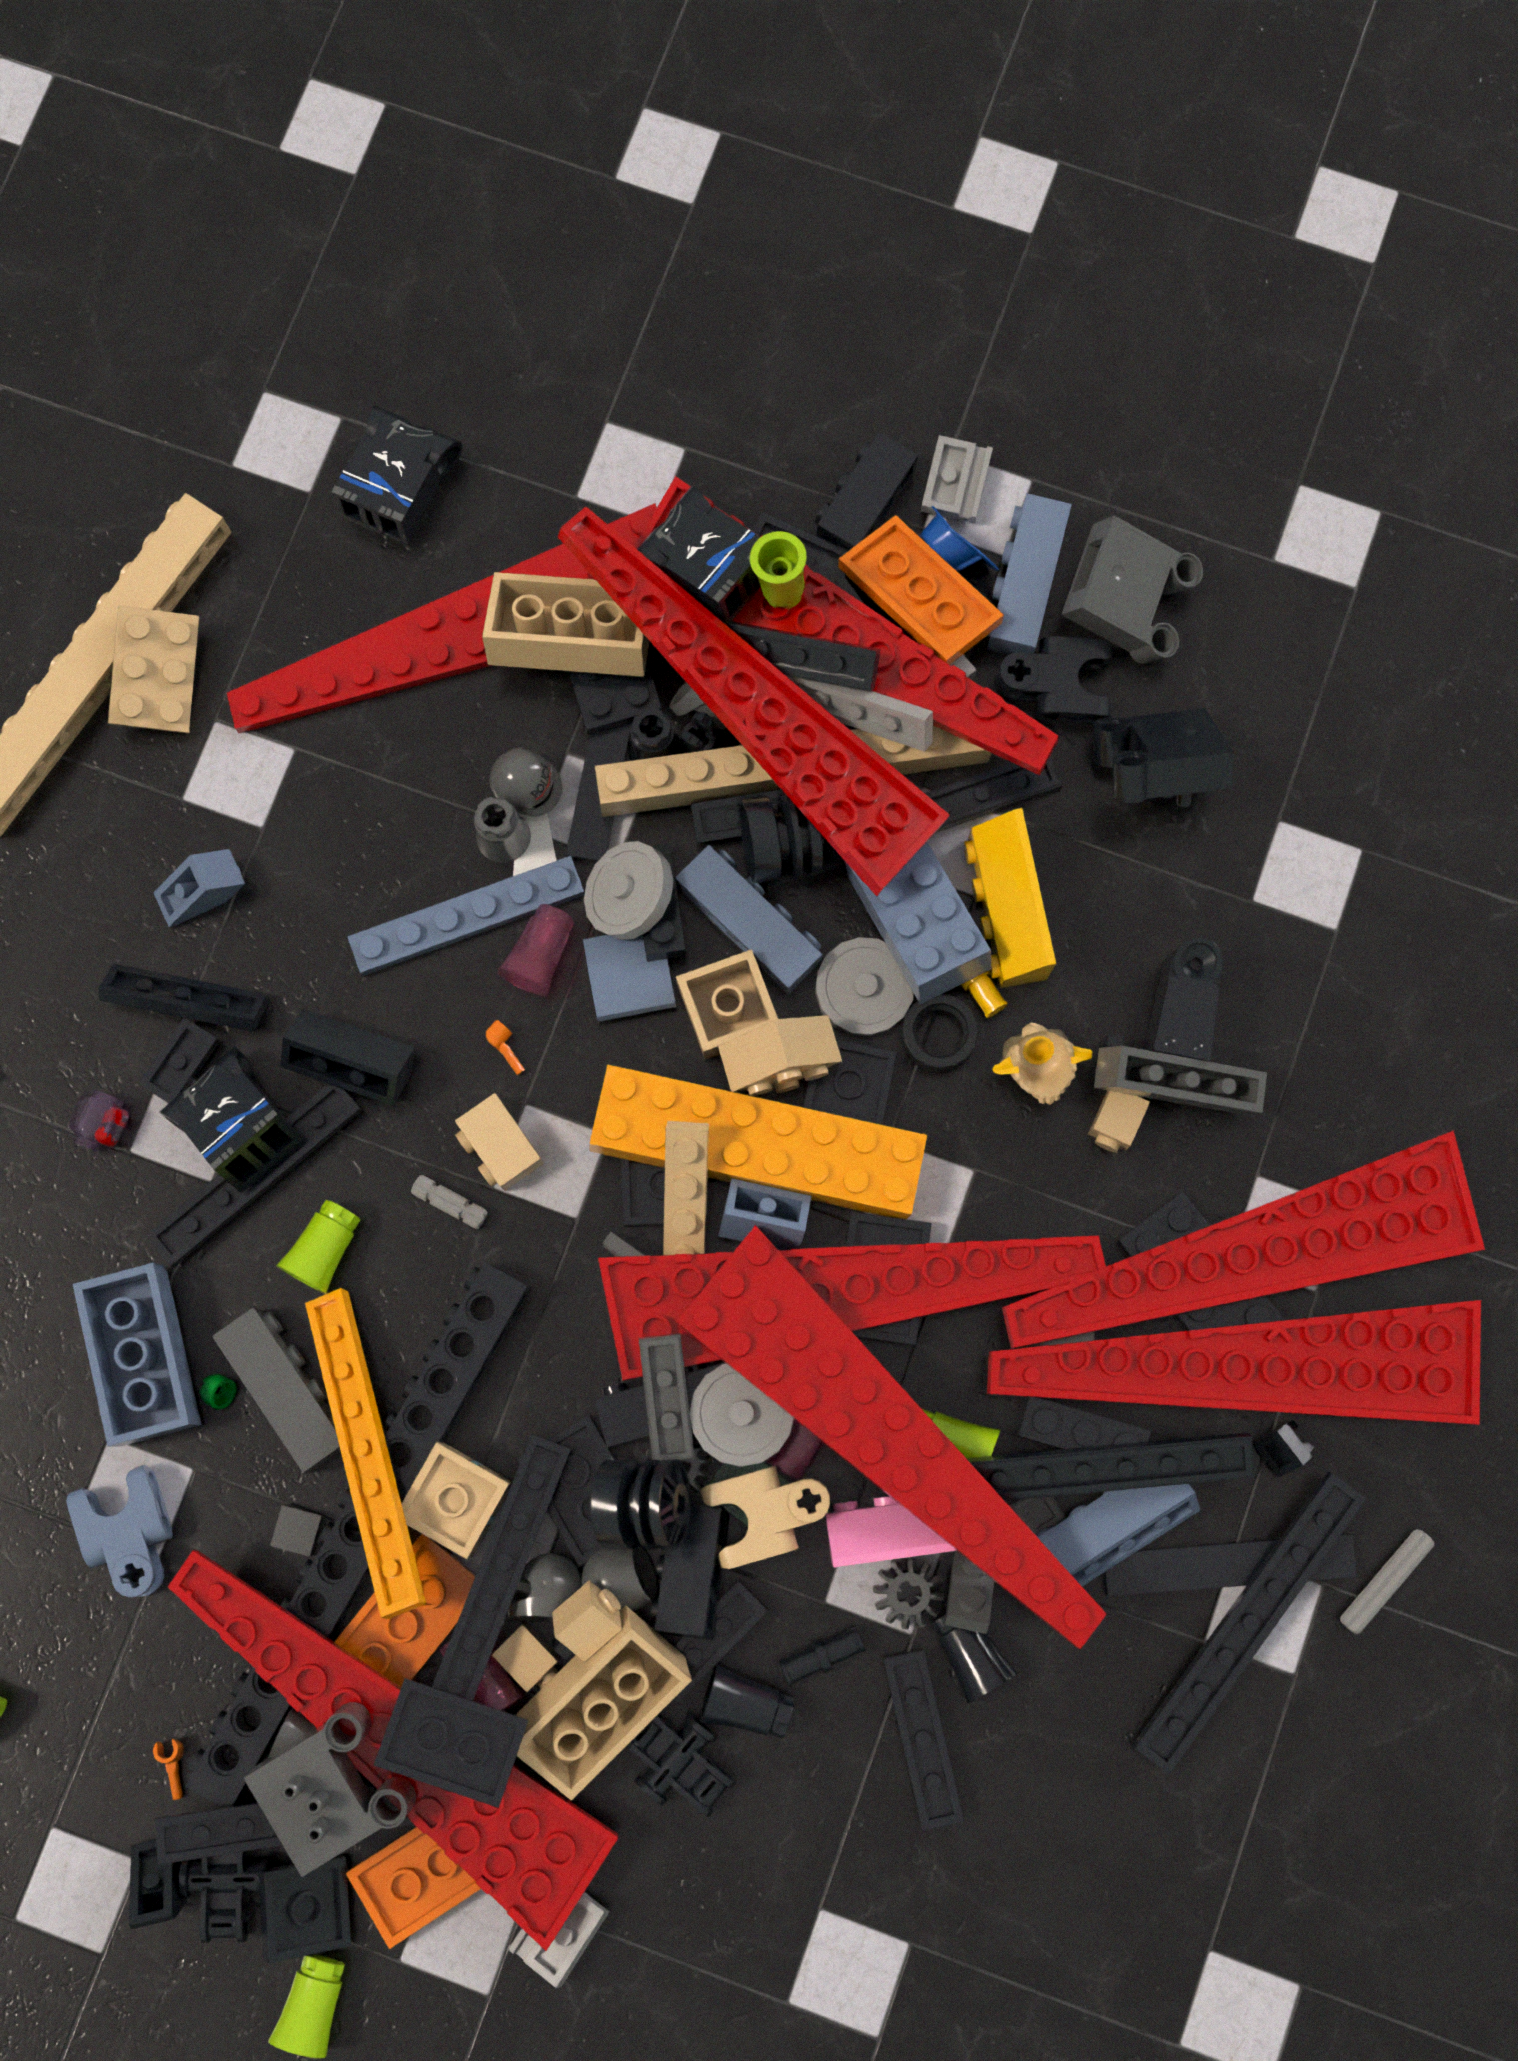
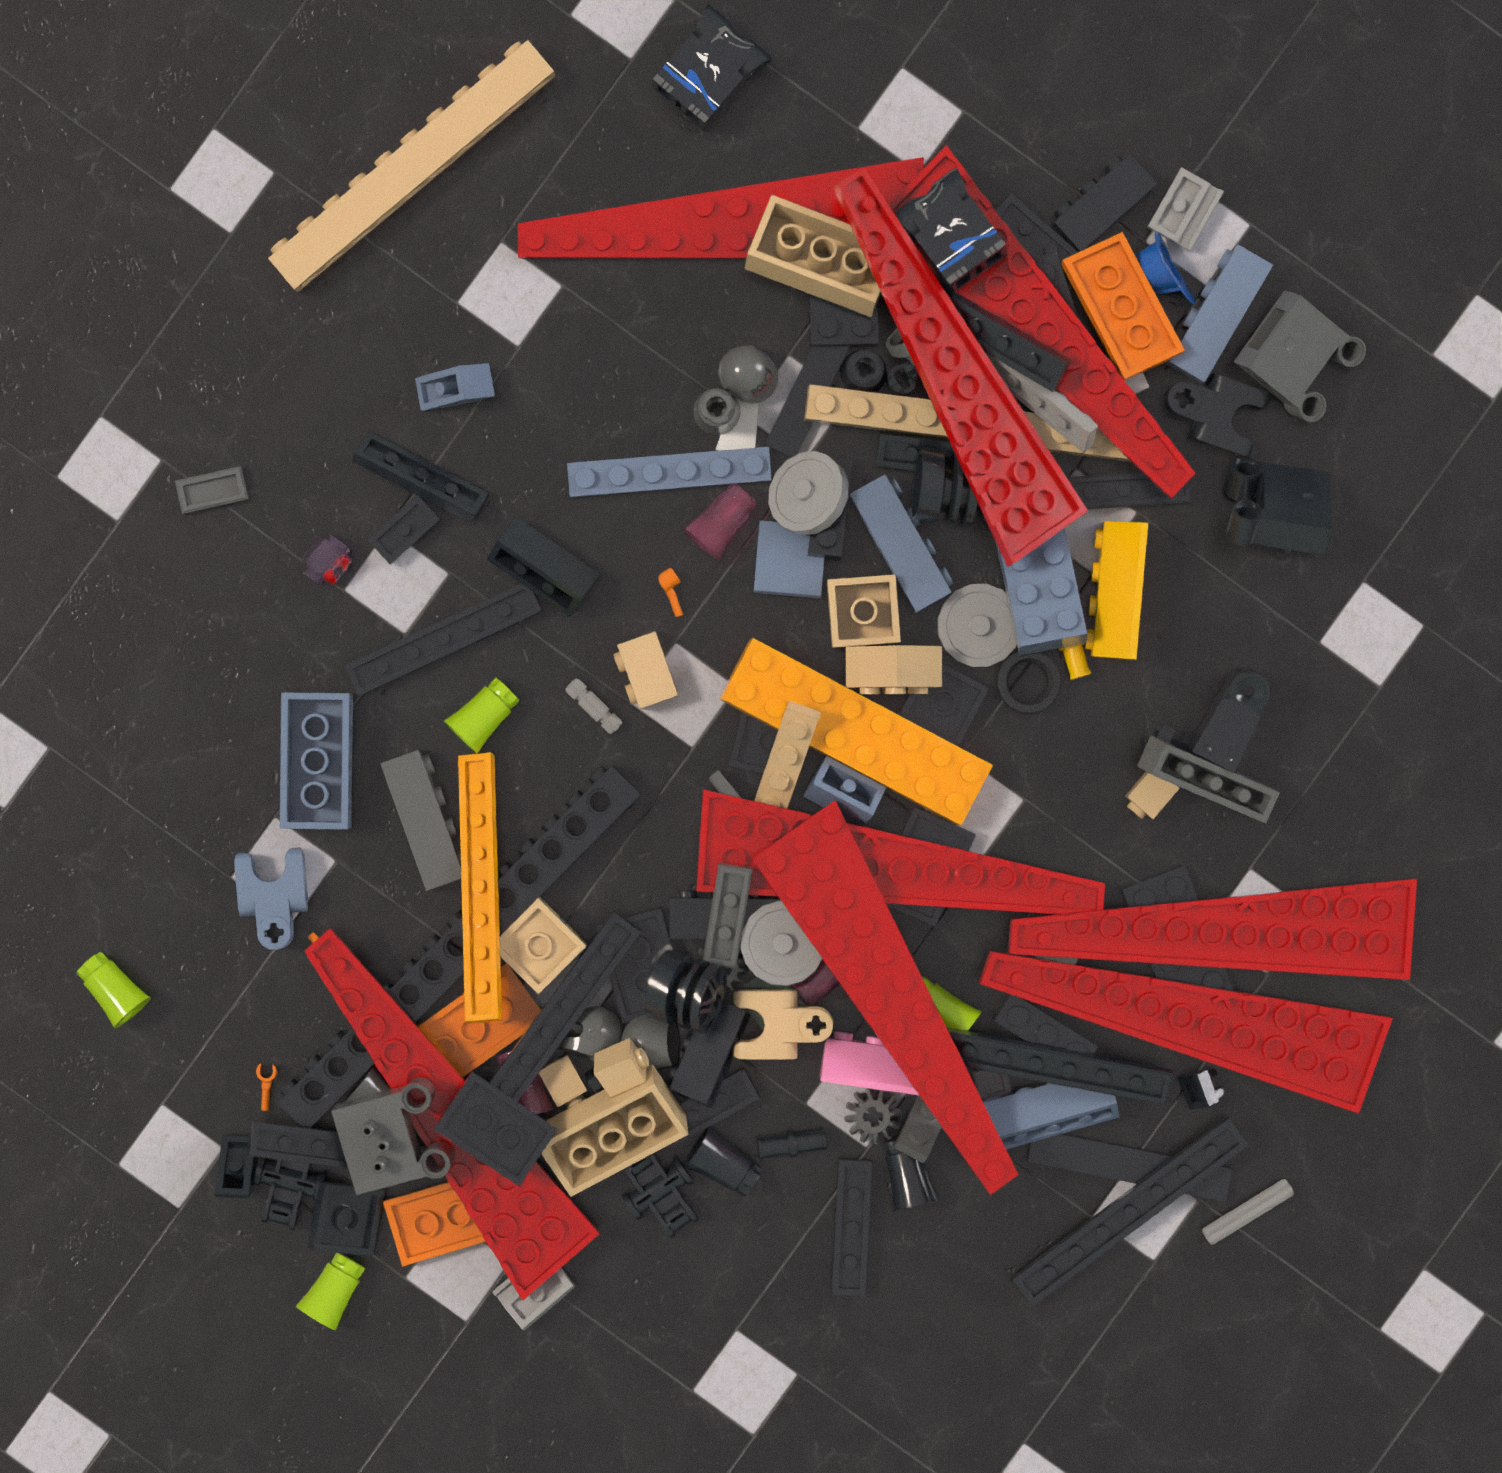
camera: 15 degrees right, 10 degrees up
(153, 669) = (463, 189): tan plate -> none
(220, 1399) = (371, 805): green hinge -> none
(233, 1121) = (437, 593): black piece -> none
(297, 1530) = (407, 932): dark grey tile -> none
(779, 565) = (1012, 257): lime plant -> none
(1041, 1061) = (1103, 730): tan hair -> none

